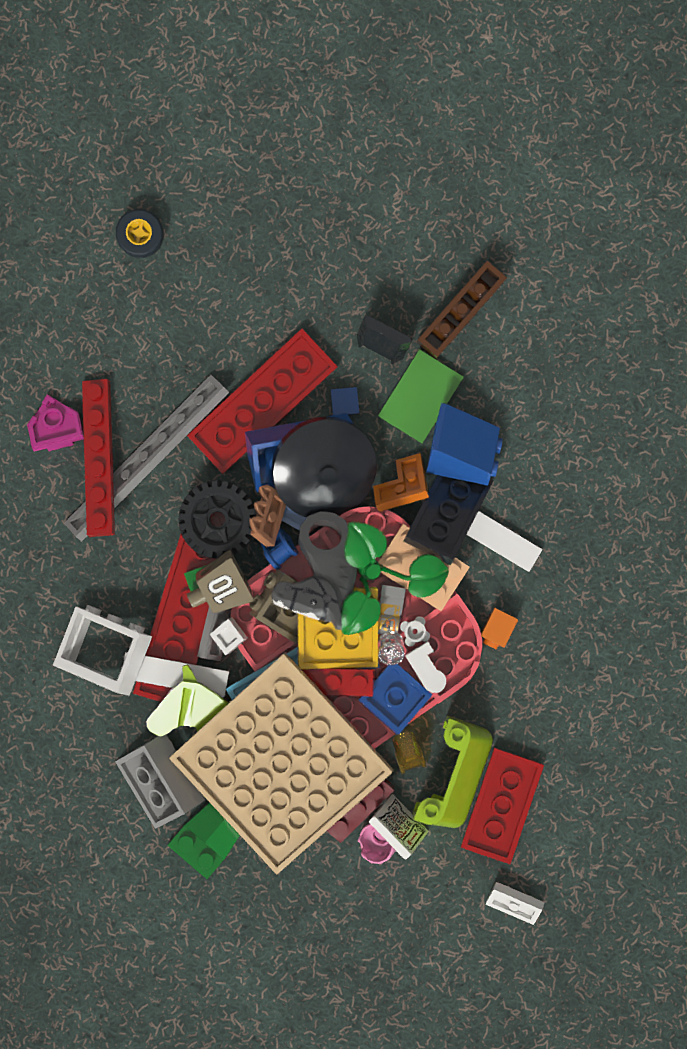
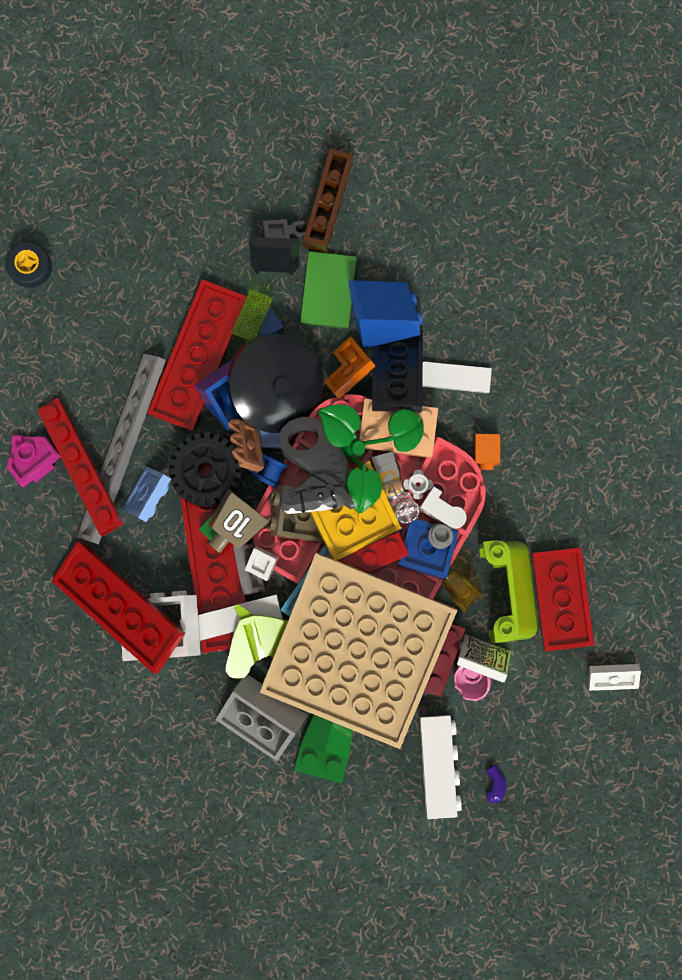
camera: 30 degrees left, 5 degrees down
(72, 612) = (118, 607): none -> red plate
(149, 515) = (146, 494): none -> light blue plate
(306, 907) = (438, 766): none -> white brick
(333, 389) = (252, 315): none -> clear neon green plate
(355, 952) = (498, 787): none -> dark purple arm
(400, 318) = (281, 229): none -> flat silver plate
(411, 692) = (440, 536): none -> light grey plate

